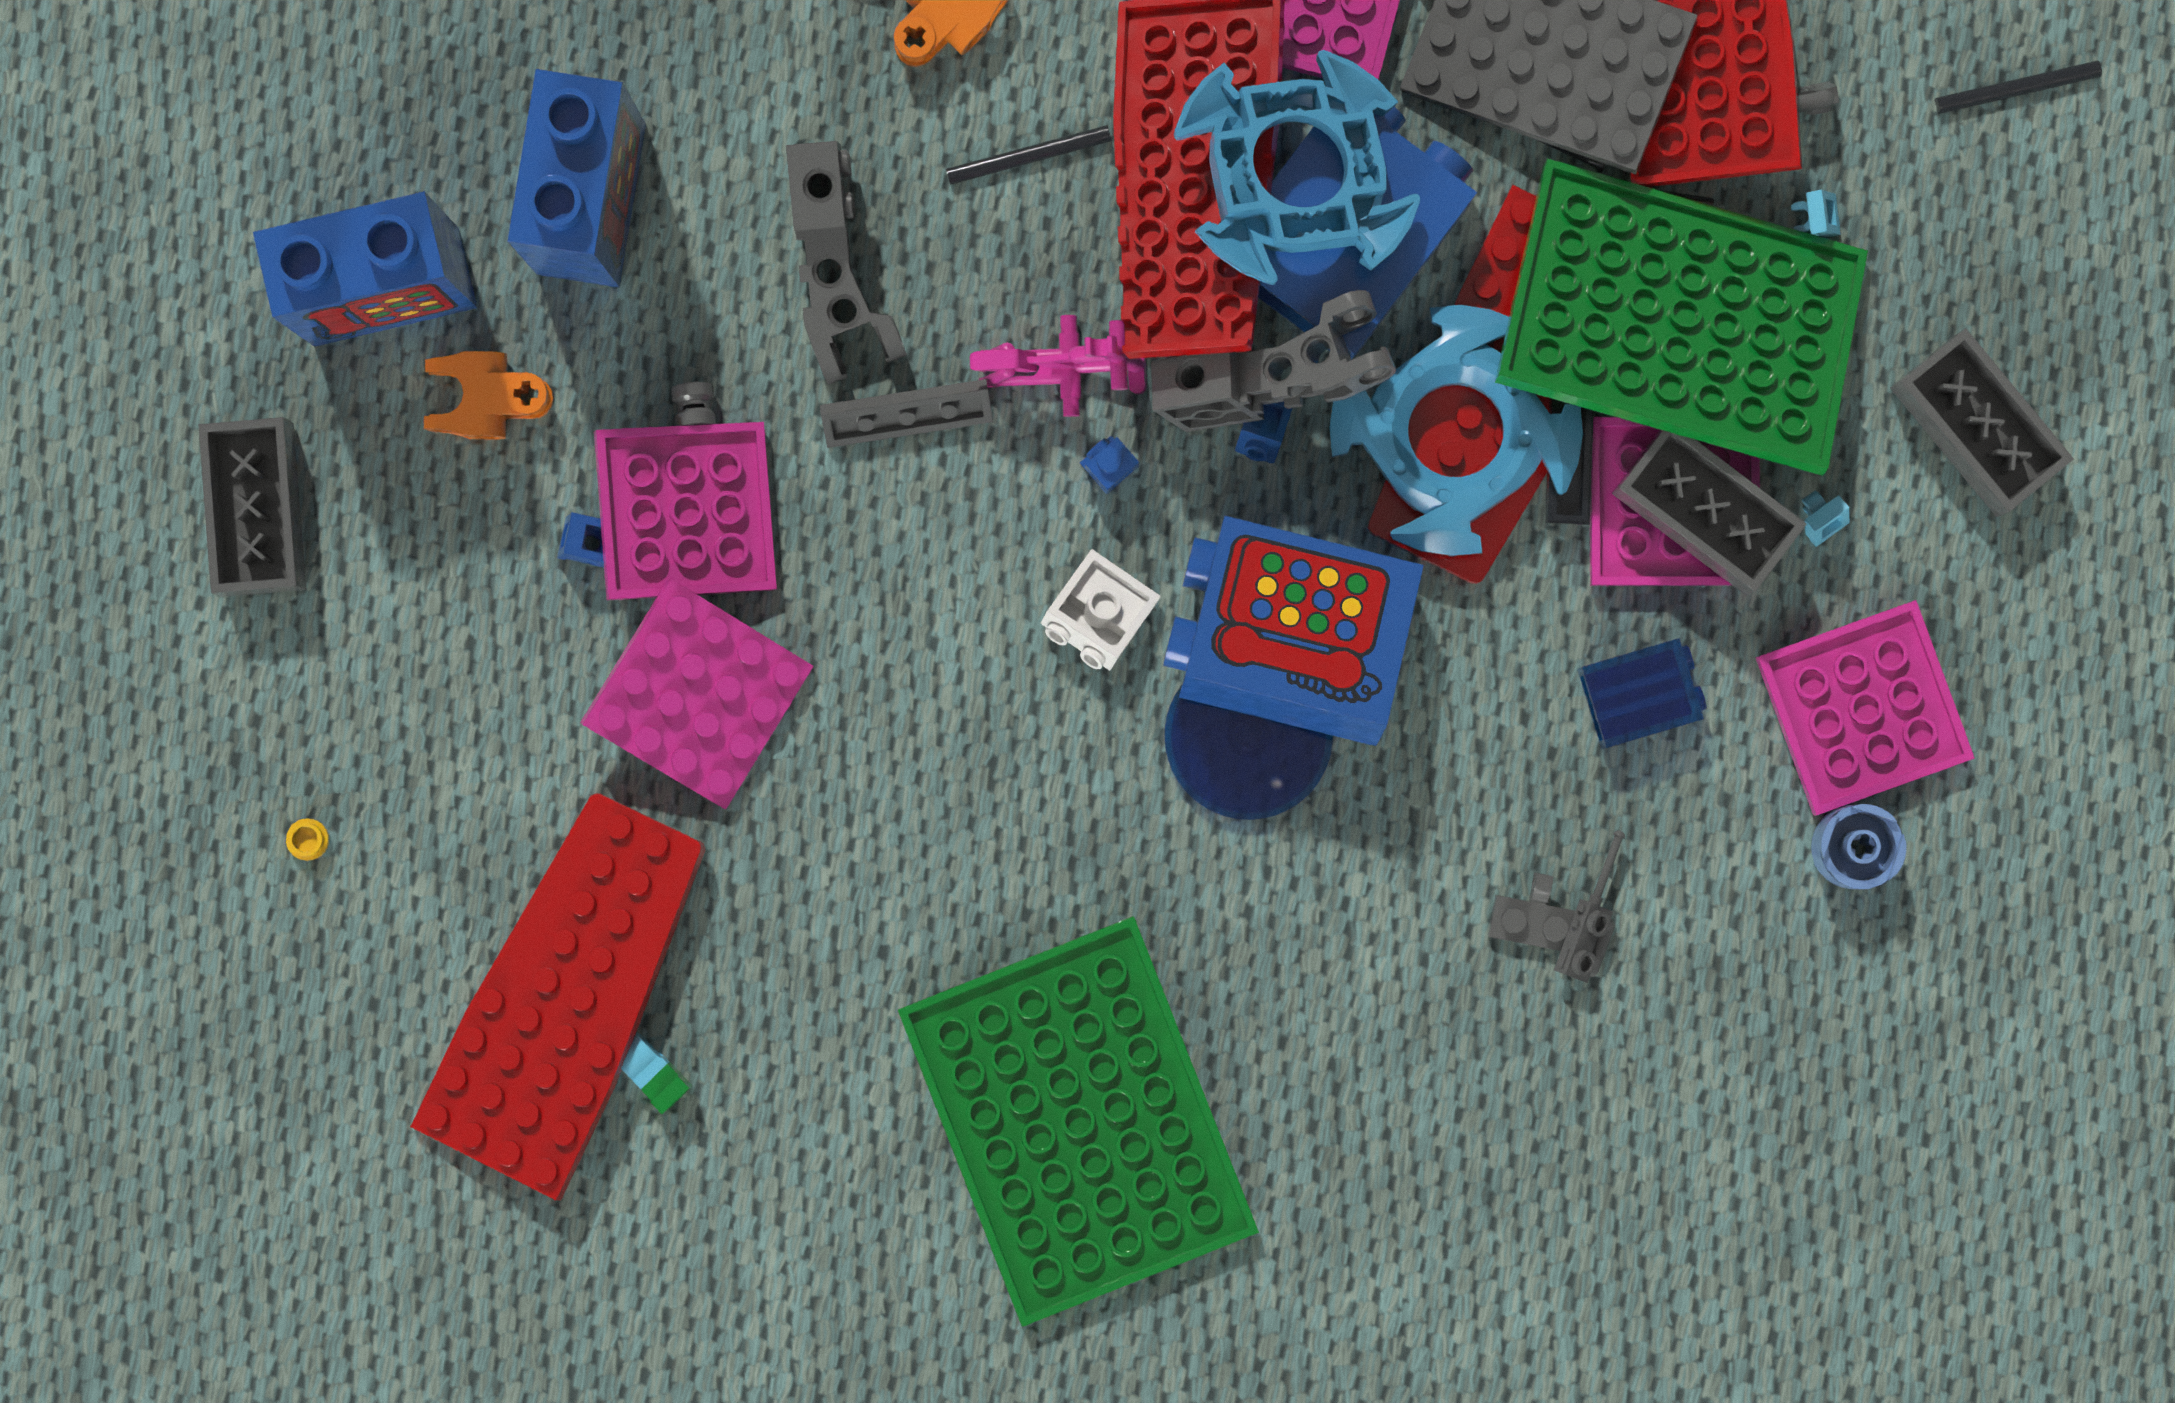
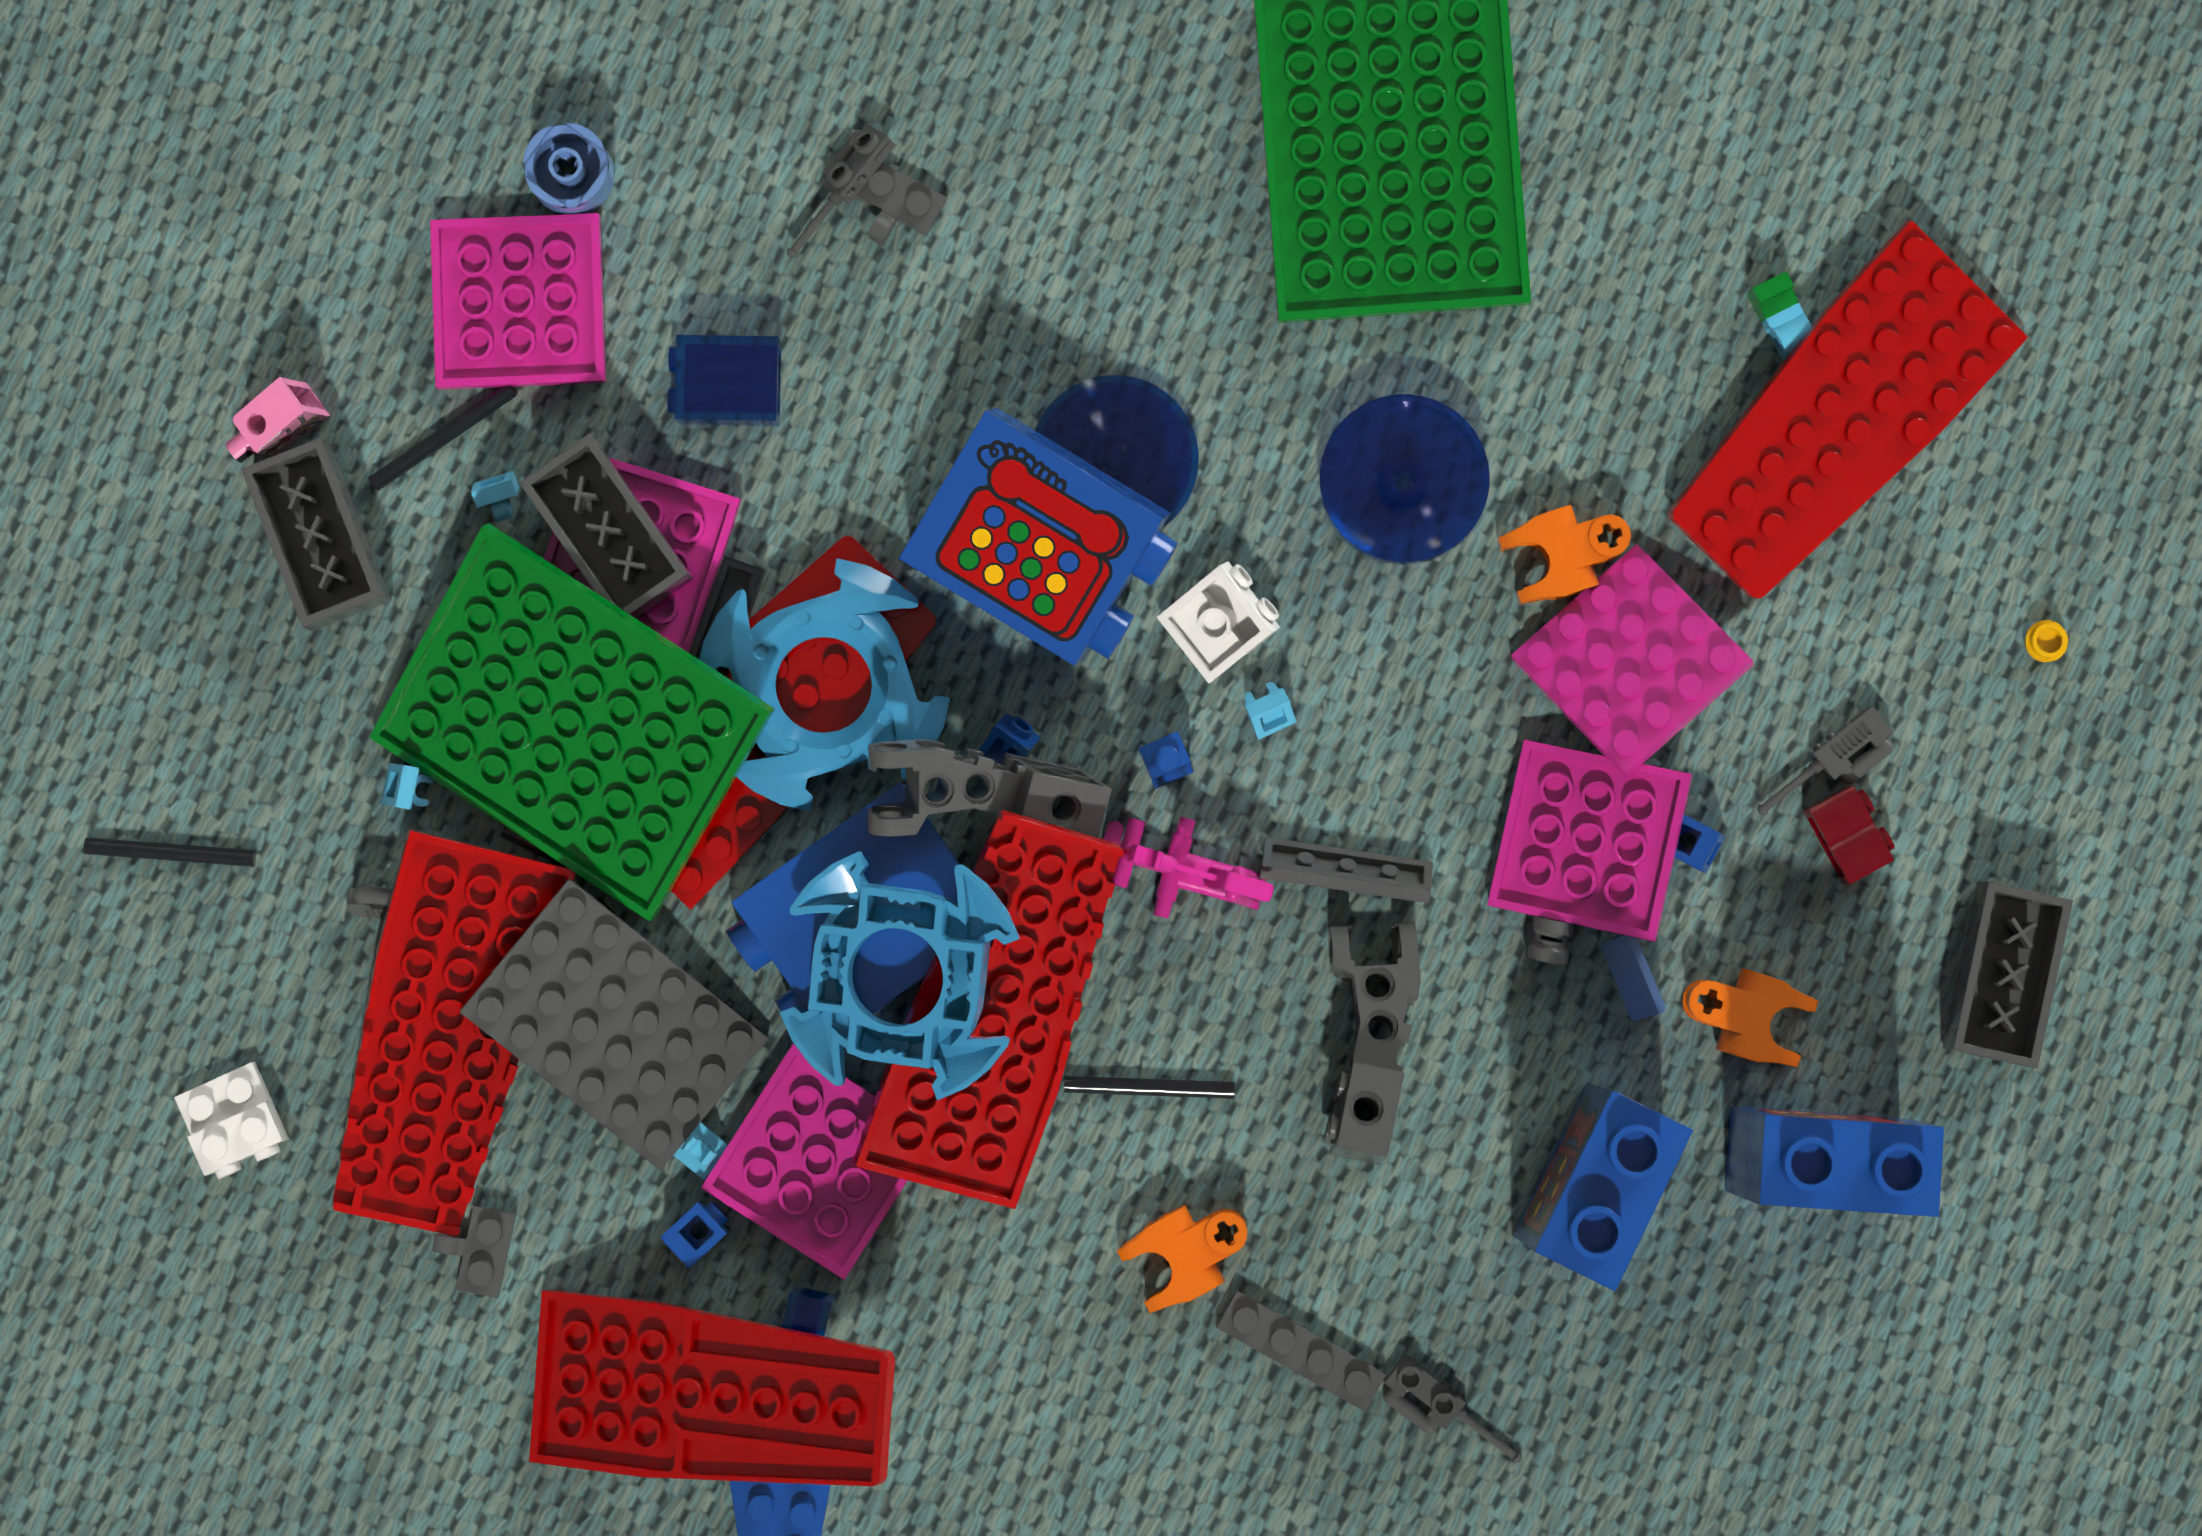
camera: 155 degrees left, 0 degrees up
(440, 595) = (1849, 834): none -> dark red brick
(474, 675) = (1834, 753): none -> dark grey piece
(604, 395) = (1633, 977): none -> medium blue slope
(788, 783) = (1568, 550): none -> orange piece
(966, 799) = (1404, 479): none -> clear blue dish
(1025, 539) = (1269, 712): none -> medium azure tile
(1894, 556) = (442, 437): none -> black bar
(2056, 521) = (276, 419): none -> bright pink torso

